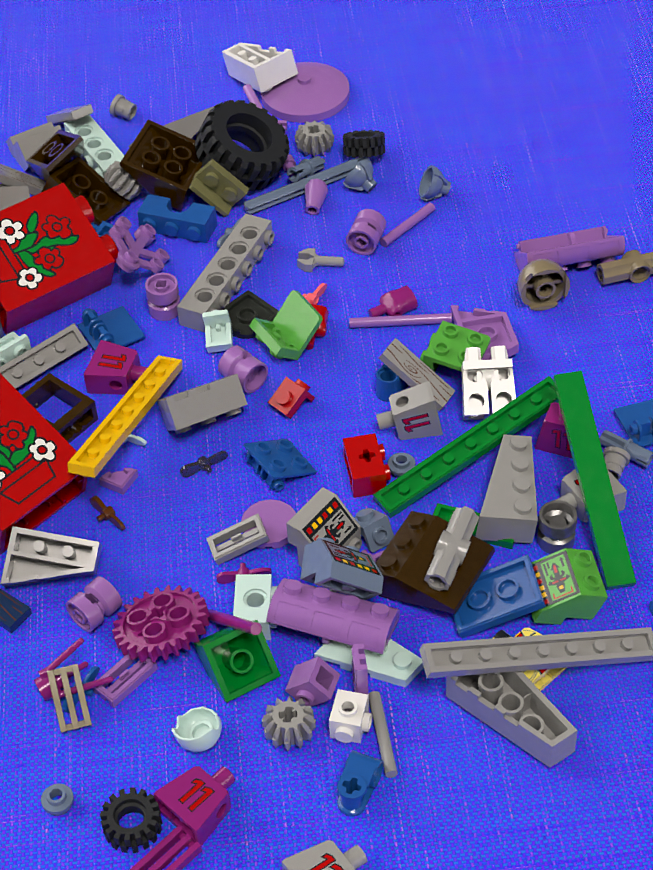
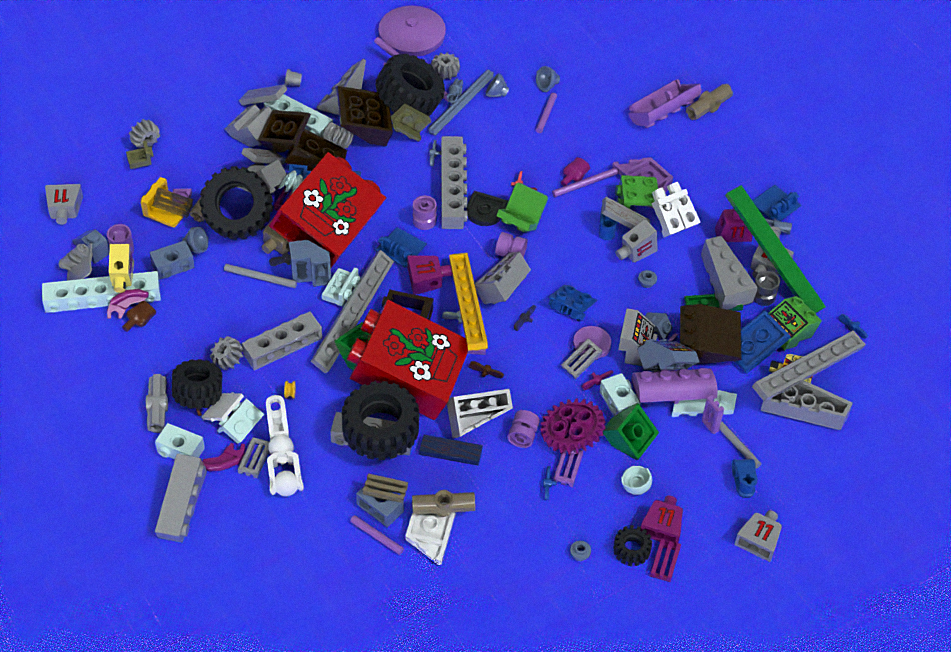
camera: 30 degrees left, 5 degrees up
(43, 682) = (531, 484): magenta plant -> none
(75, 723) = (559, 503): dark tan tile -> none
(129, 258) = (376, 174): medium lavender plant -> none
(193, 224) = (405, 155): blue arch -> none
(218, 330) = (477, 226): light aqua bracket -> none
(235, 622) = (628, 408): magenta bar -> none
(259, 66) = (374, 21): white wedge -> none
(288, 723) = (685, 457): light grey gear -> none
(290, 396) = (551, 256): bracket -> none
(309, 259) = (498, 157): light grey bar -> none
(312, 682) = (686, 429): medium lavender brick -> none
(315, 195) = (473, 108): medium lavender cone -> none
(350, 716) = (717, 441): white brick -> none
(364, 143) = (484, 61): black tyre -> none
(365, 464) = (627, 286): red brick -> none
(366, 232) = (527, 126): medium lavender wheel -> none
(451, 548) = (723, 321): light grey piece -> none
(466, 448) = (685, 254): green tile -> none
(542, 284) = (663, 131): dark tan cylinder -> none

